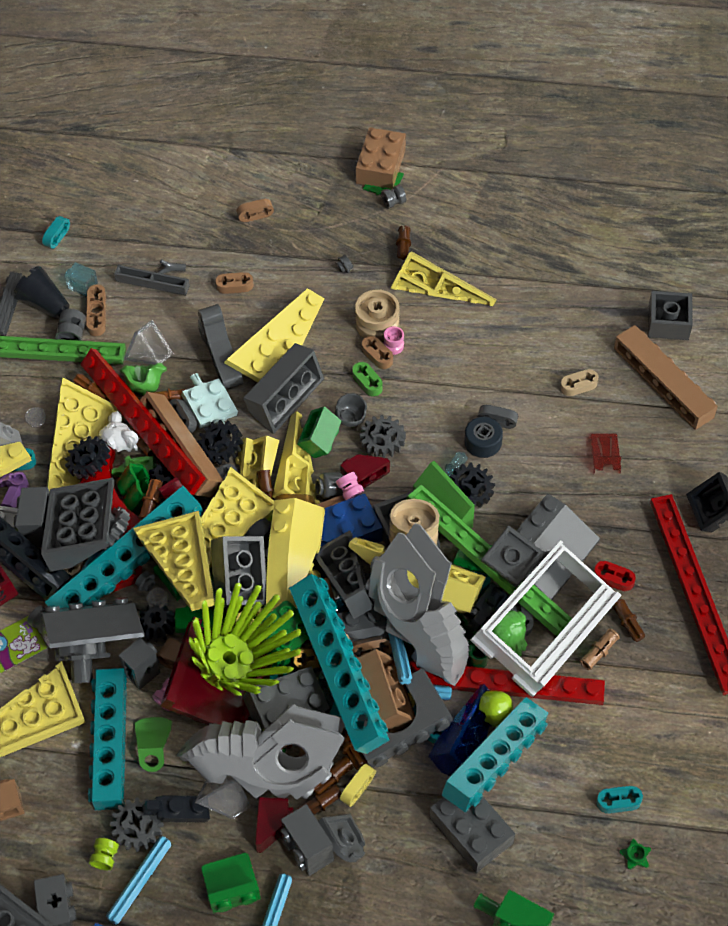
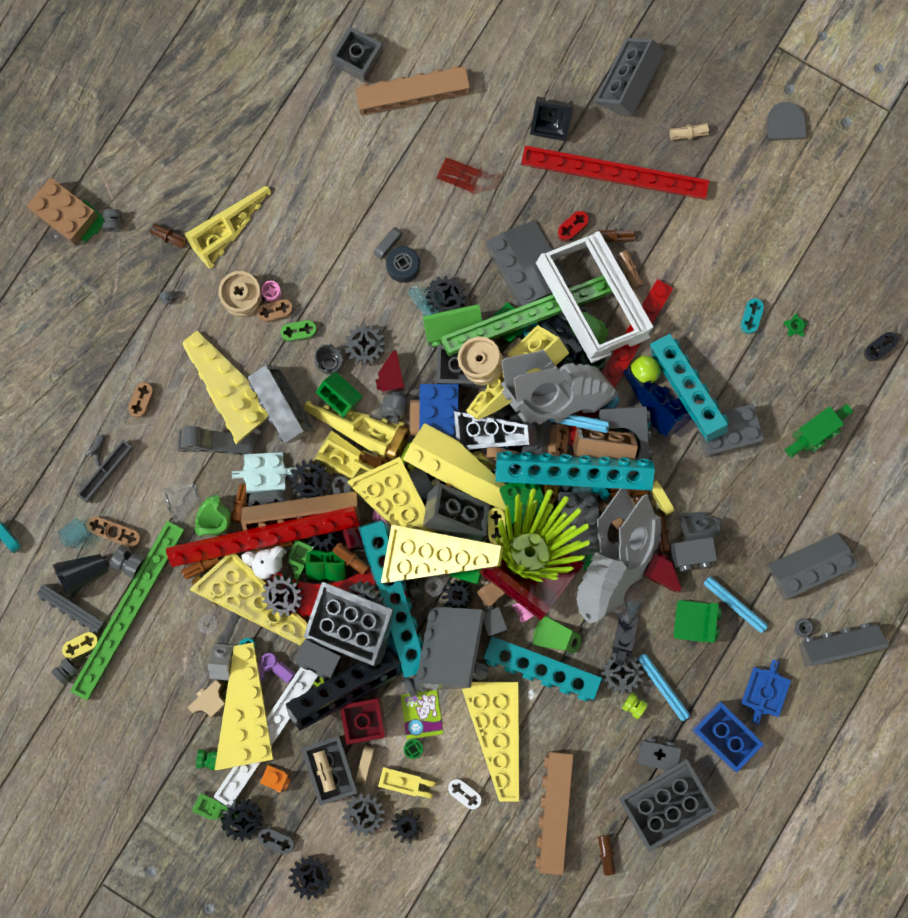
camera: 65 degrees left, 25 degrees up
(255, 210) = (67, 349): medium nougat beam -> none
(349, 486) = (408, 393): bright pink wheel -> none
(512, 556) = (535, 297): dark grey plate -> none
(579, 383) = (379, 161): tan beam -> none

